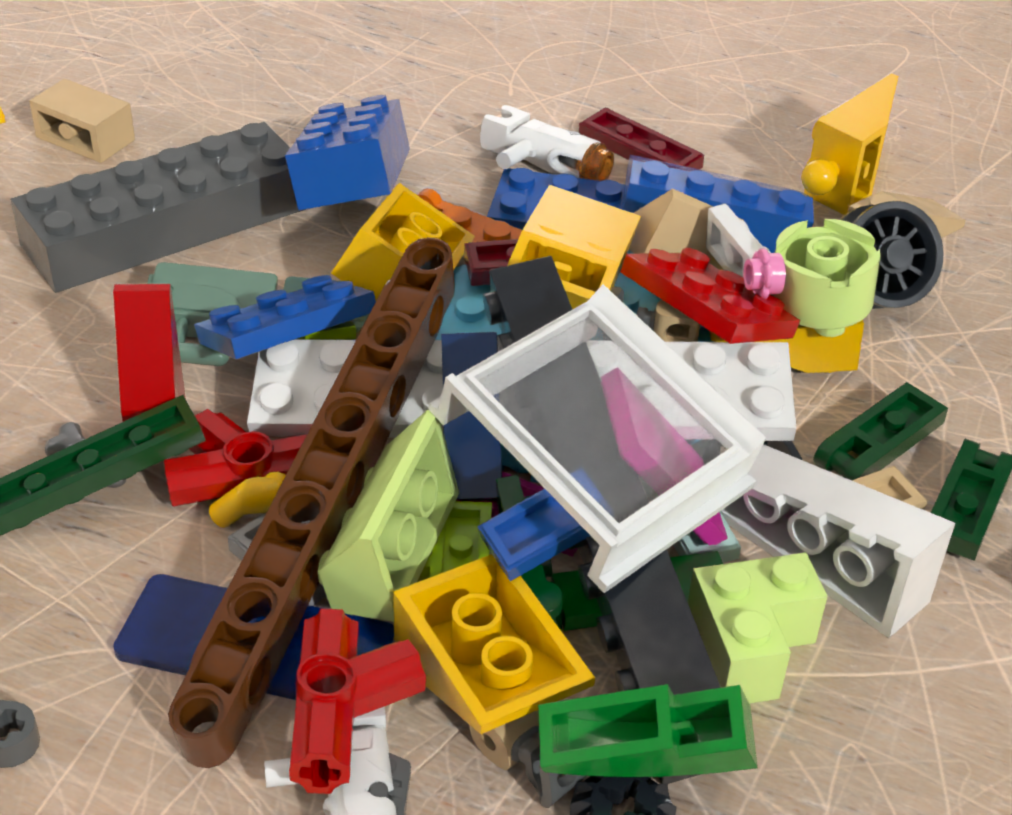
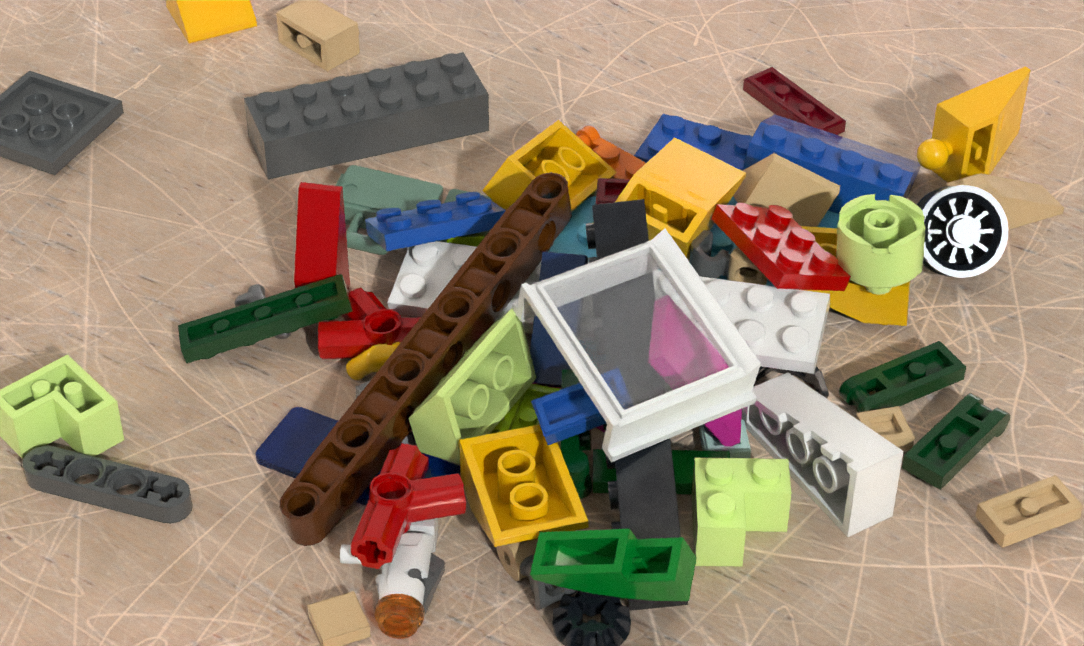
camera: 15 degrees right, 0 degrees up
(348, 153) = (525, 88): blue brick -> none
(544, 145) = (703, 97): white piece -> none
(730, 239) = (819, 209): white plate -> none
(765, 273) = (825, 234): bright pink plate -> none

